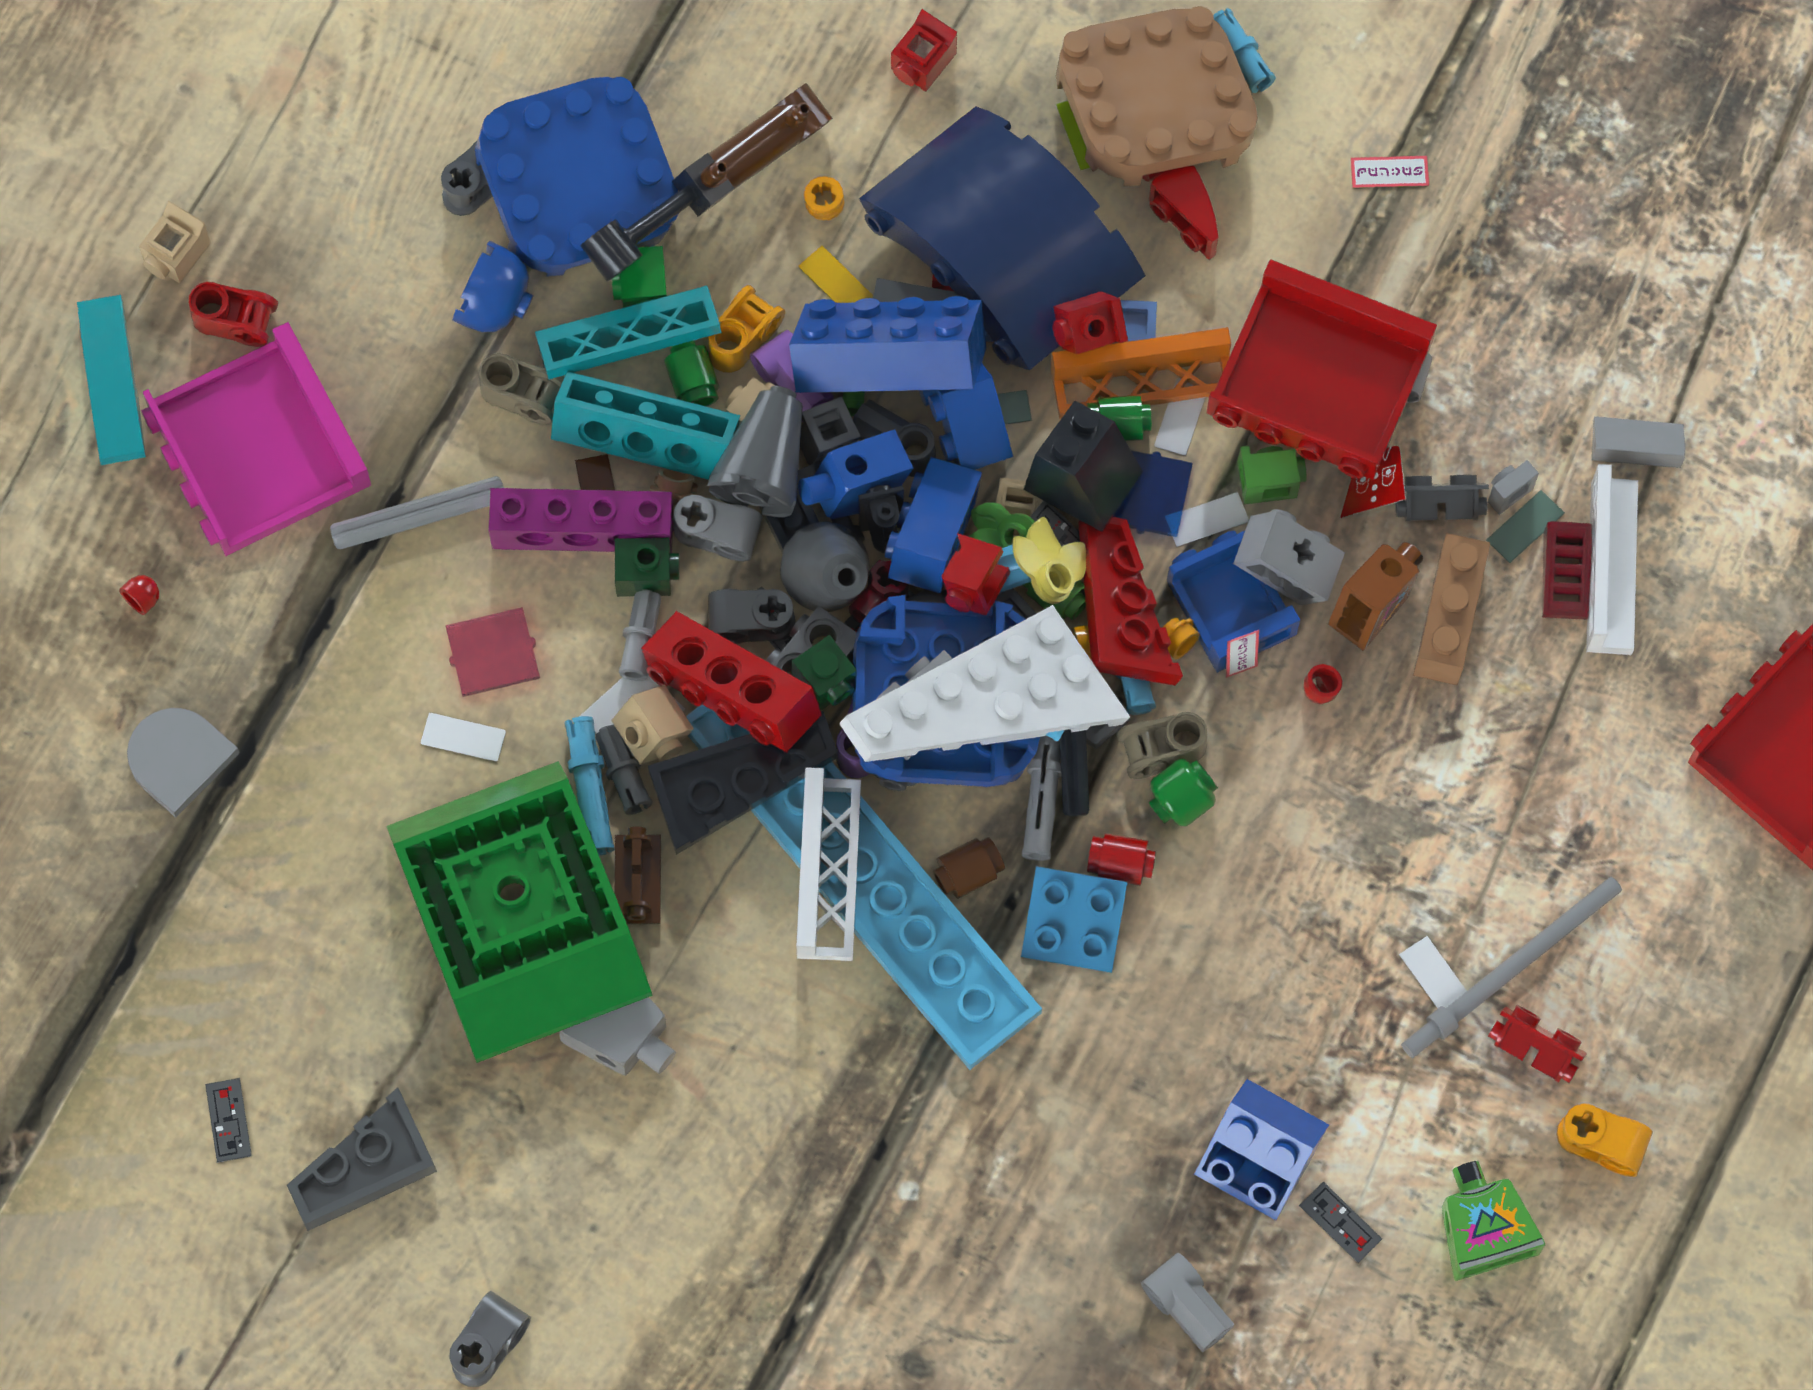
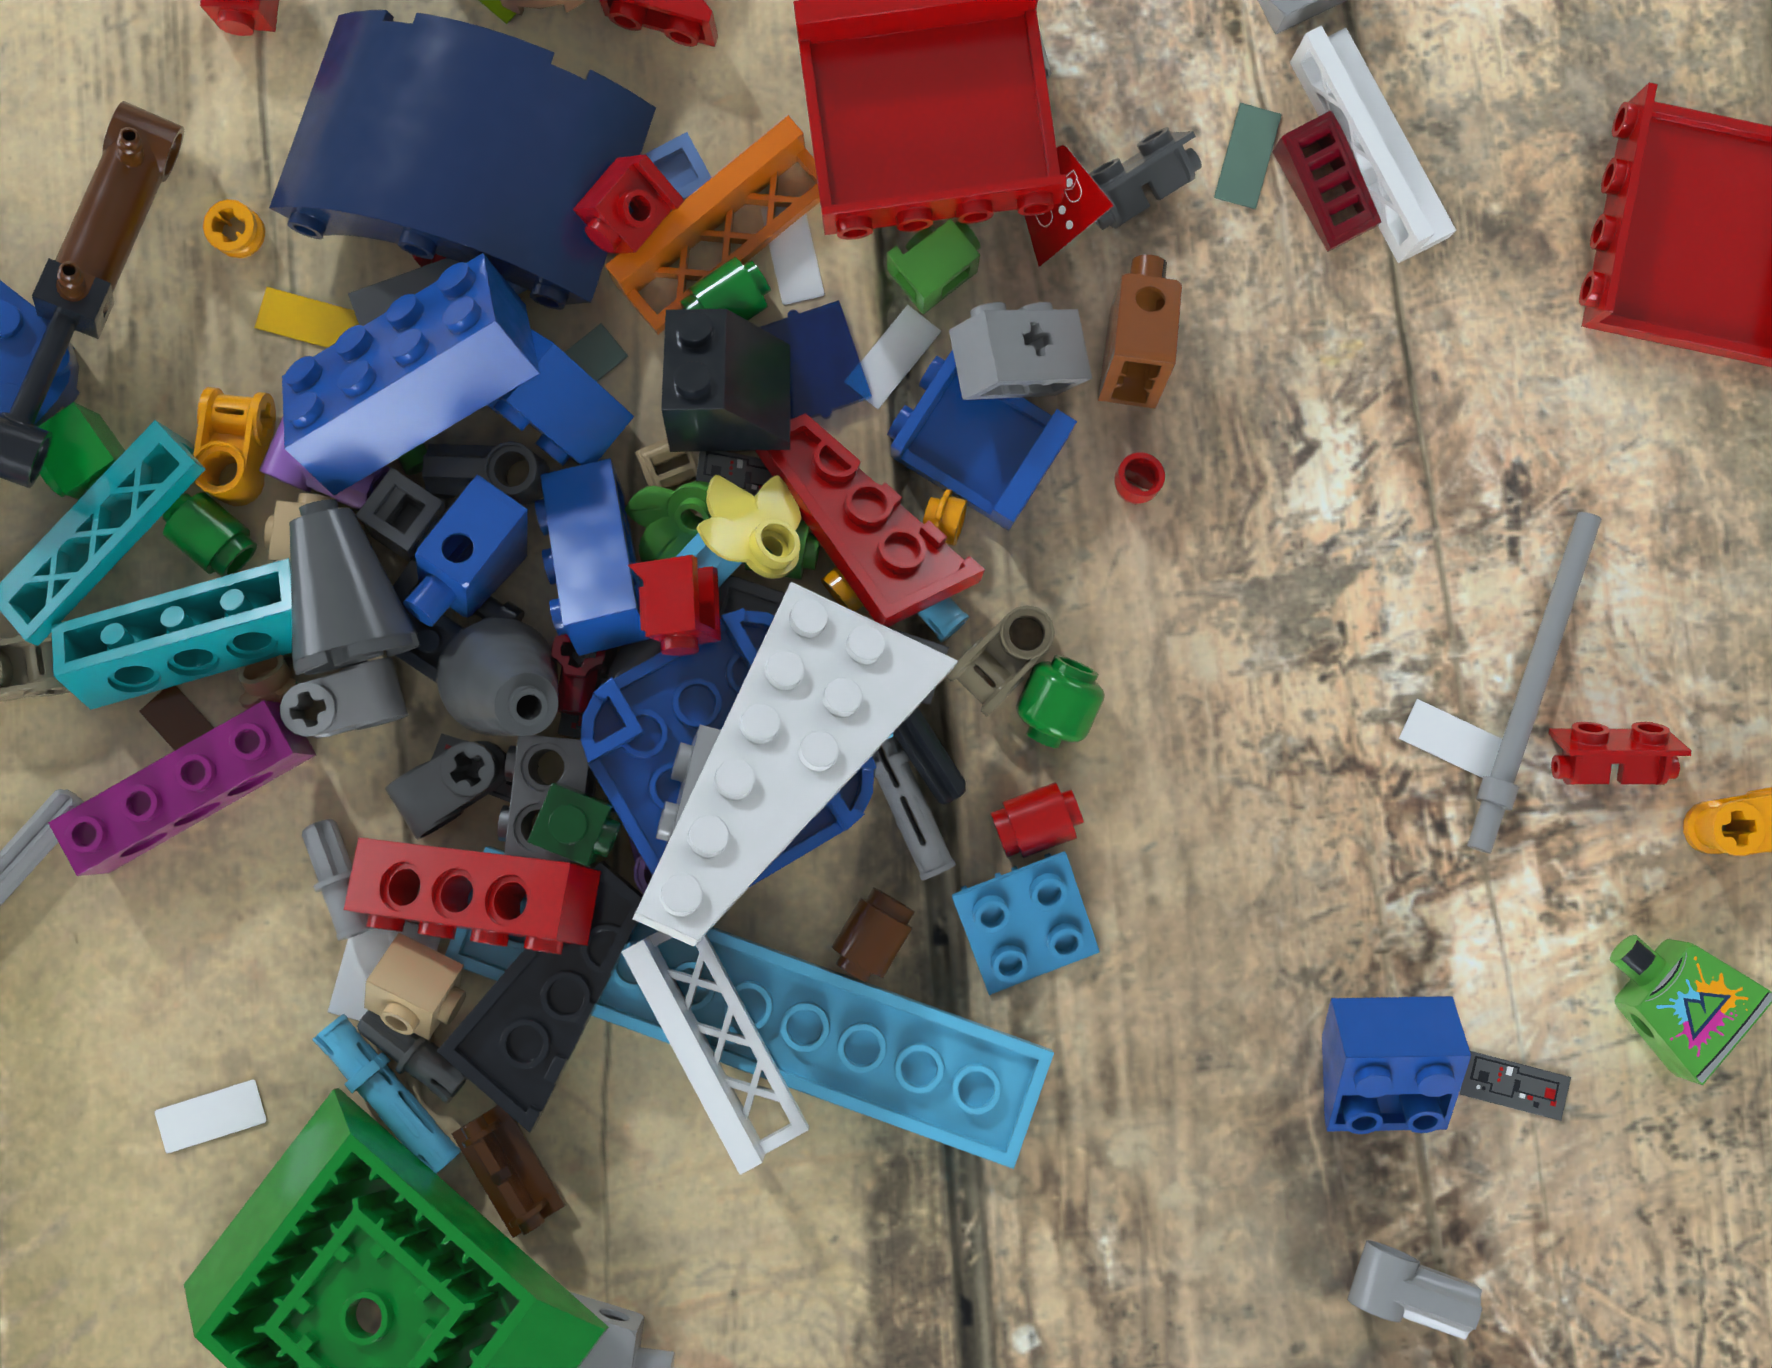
camera: 30 degrees left, 15 degrees up
(492, 652) = (182, 997): clear pink piece -> none
(645, 565) = (291, 799): dark green brick -> none
(880, 513) = (522, 578): black hinge -> none
(1242, 653) = (1034, 499): white sticker -> none
(1451, 609) = (1233, 302): medium nougat brick -> none
(1512, 485) = (1212, 115): light grey plate -> none

